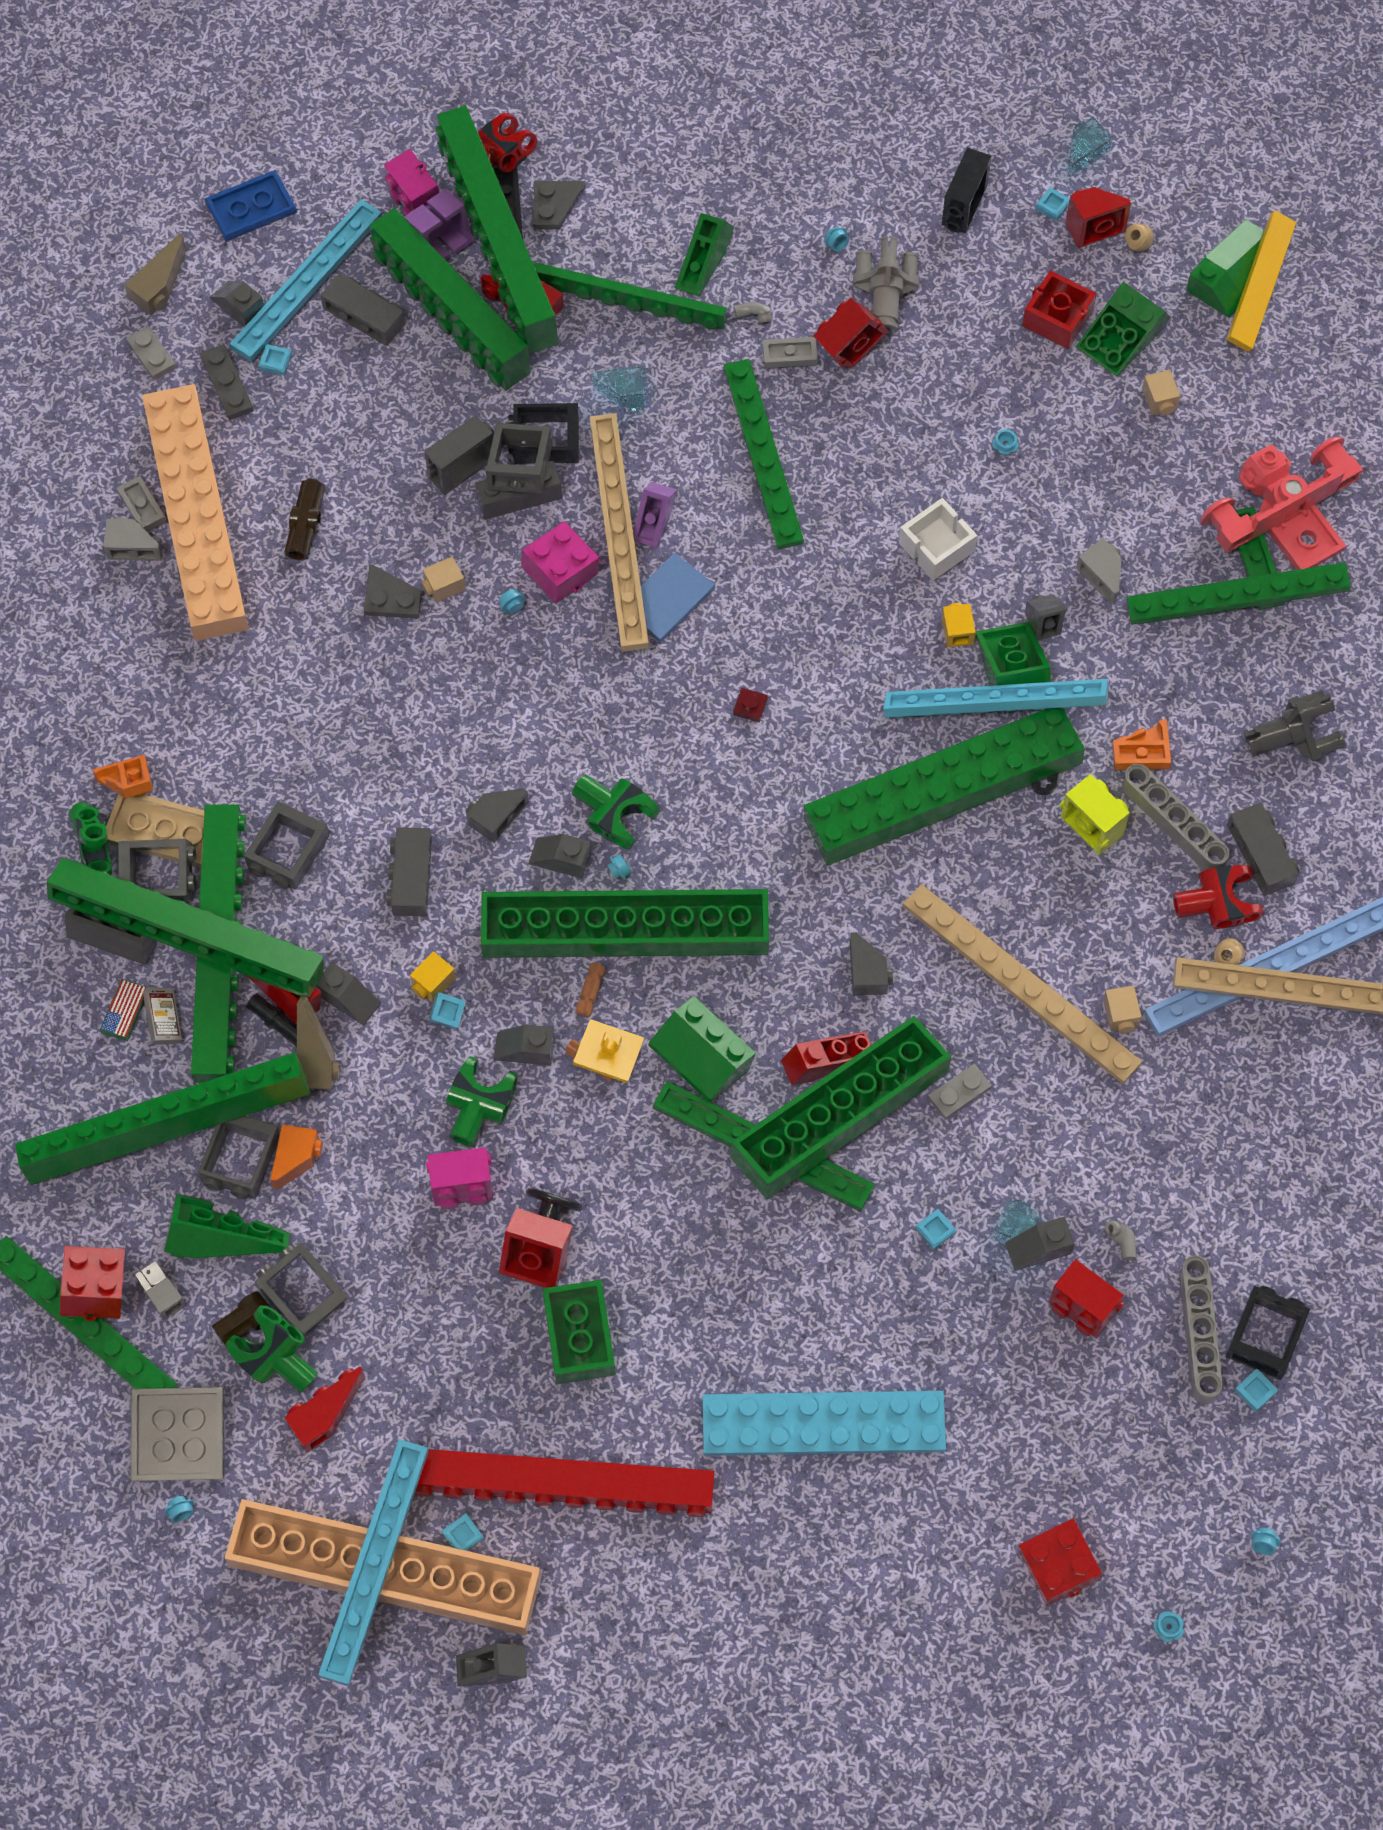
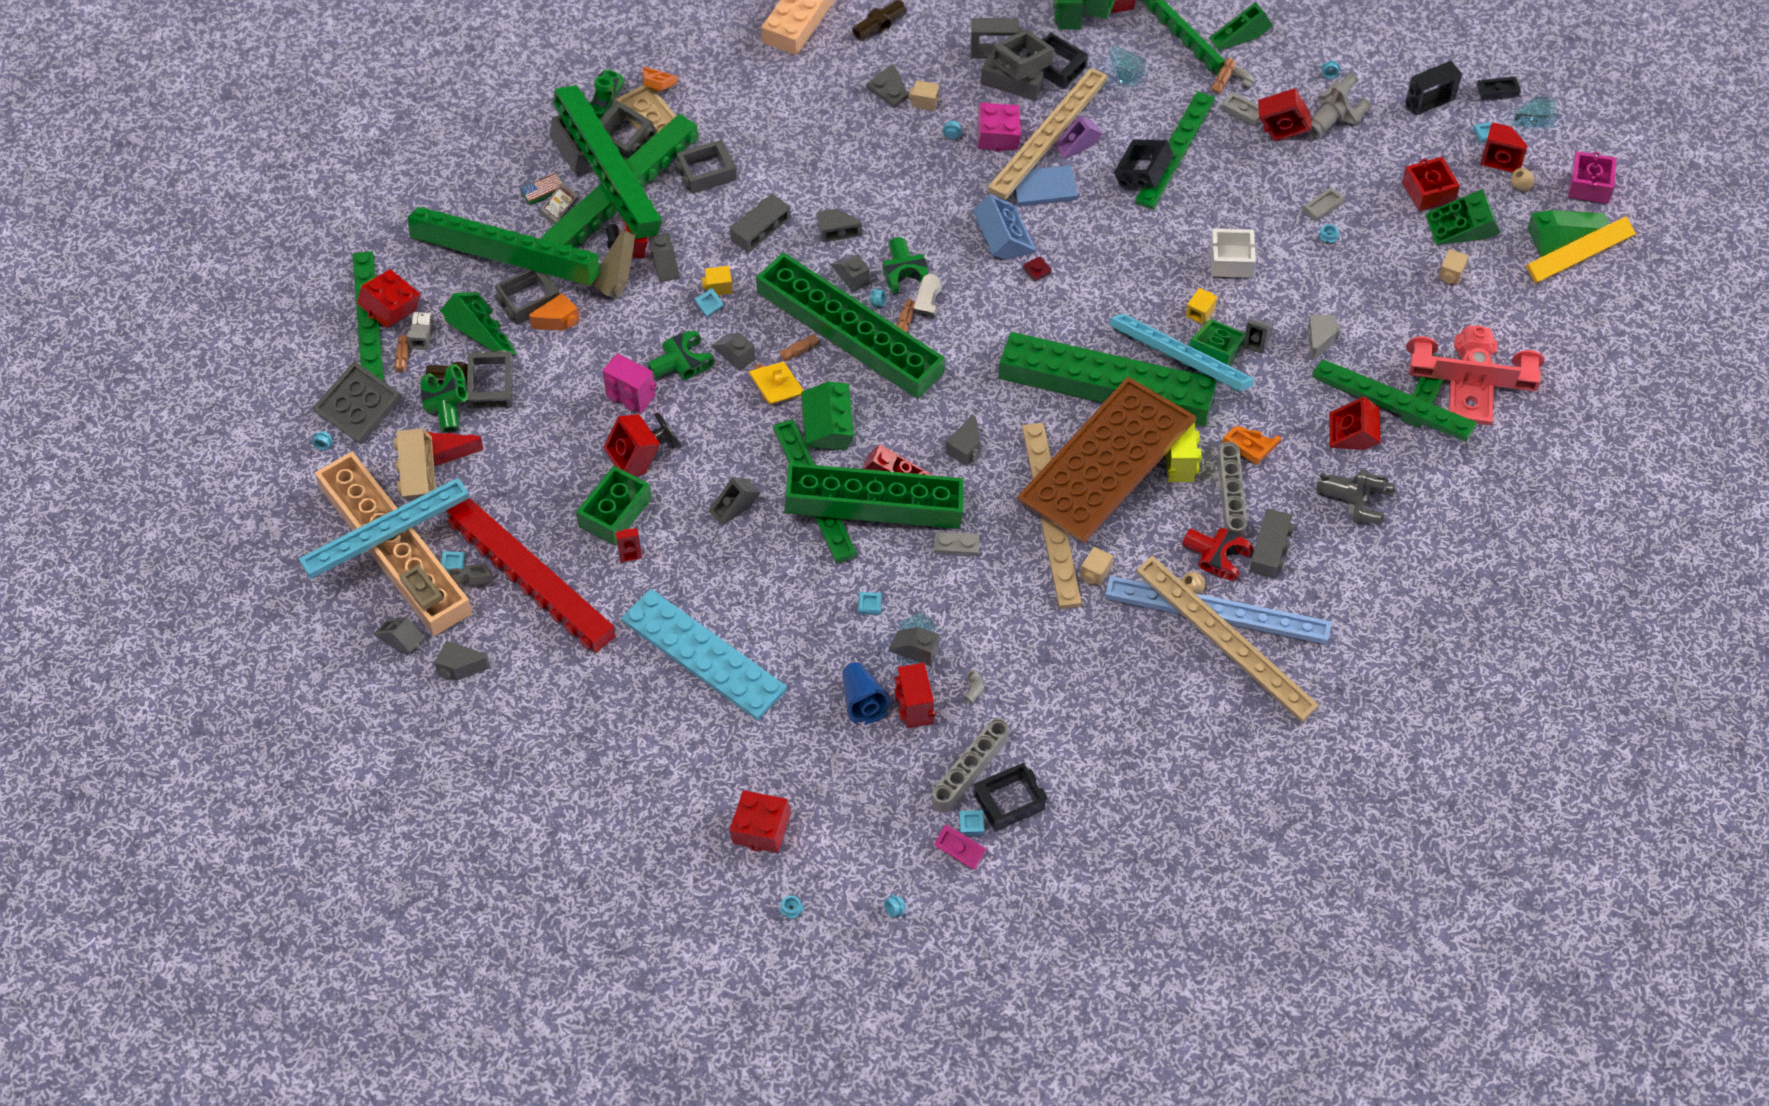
camera: 40 degrees right, 10 degrees down
(163, 1334) = (401, 354): none -> nougat axle
(331, 1461) = (414, 463): none -> tan brick
(482, 1597) = (421, 587): none -> dark tan plate
(502, 1530) = (473, 574): none -> dark grey plate
(585, 1642) = (459, 661): none -> dark grey slope
(641, 1365) = (628, 545): none -> red plate
(668, 866) = (906, 315): none -> nougat axle
(669, 815) = (926, 296): none -> leg
(675, 684) = (1003, 228): none -> medium blue slope
(694, 1224) = (734, 499): none -> dark grey slope
(736, 326) = (1223, 76): none -> nougat axle
(747, 475) = (1155, 150): none -> black window
(968, 410) = (1323, 204): none -> light grey tile
(1021, 141) = (1498, 88): none -> black plate
(1028, 1336) = (864, 695): none -> blue cone
(1039, 883) = (1106, 459): none -> dark orange plate
(1206, 186) = (1592, 177): none -> dark pink brick
(1225, 652) = (1355, 425): none -> red slope
(1270, 1425) = (960, 846): none -> dark pink plate

